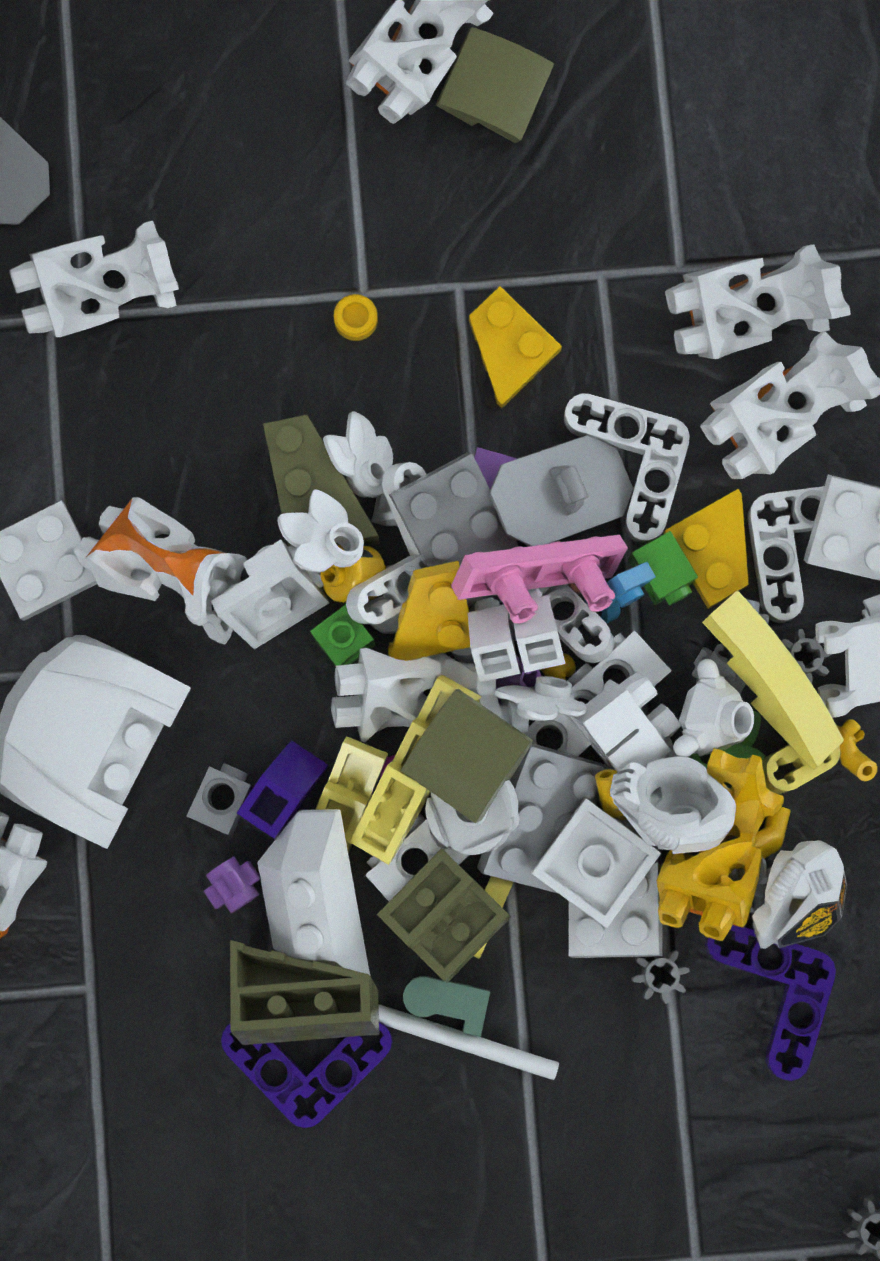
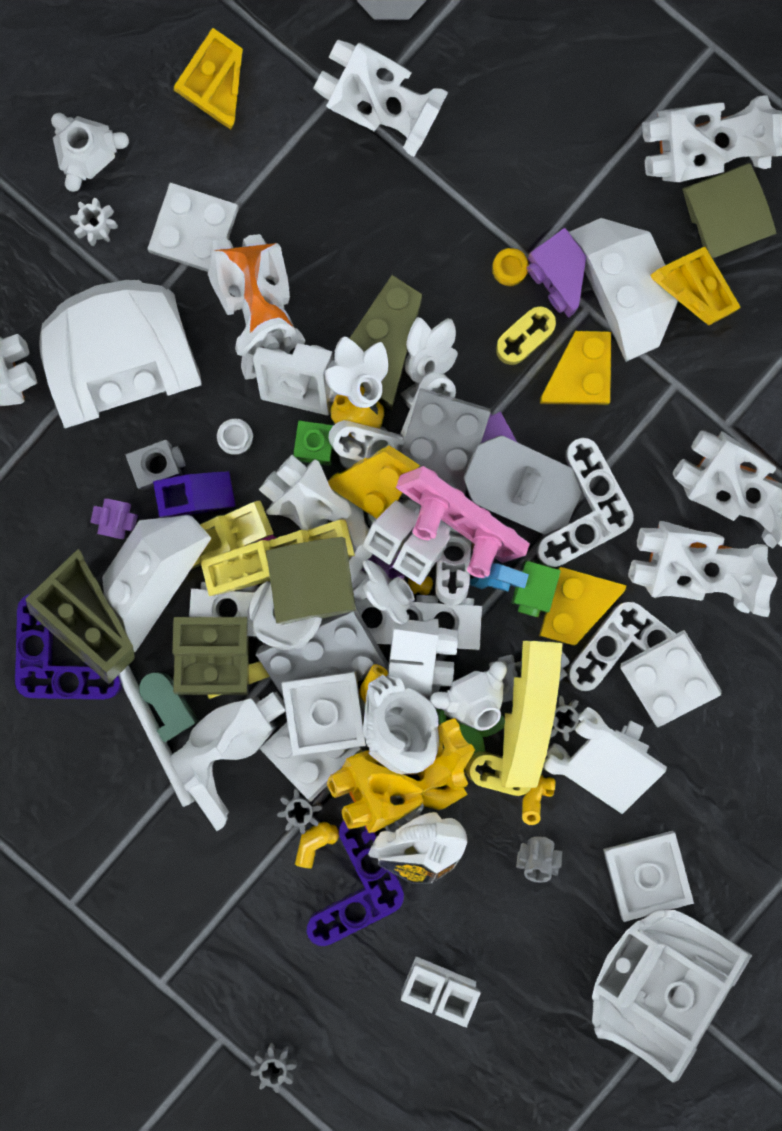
camera: 40 degrees right, 5 degrees up
(265, 704) = (235, 436): none -> white plate
(403, 275) = (560, 267): none -> medium lavender slope
(440, 363) = (520, 329): none -> light yellow beam
(471, 230) = (619, 272): none -> white wedge
(525, 972) = (229, 734): none -> white hips
(535, 172) = (698, 286): none -> yellow wing
(698, 990) = (314, 839): none -> yellow arm

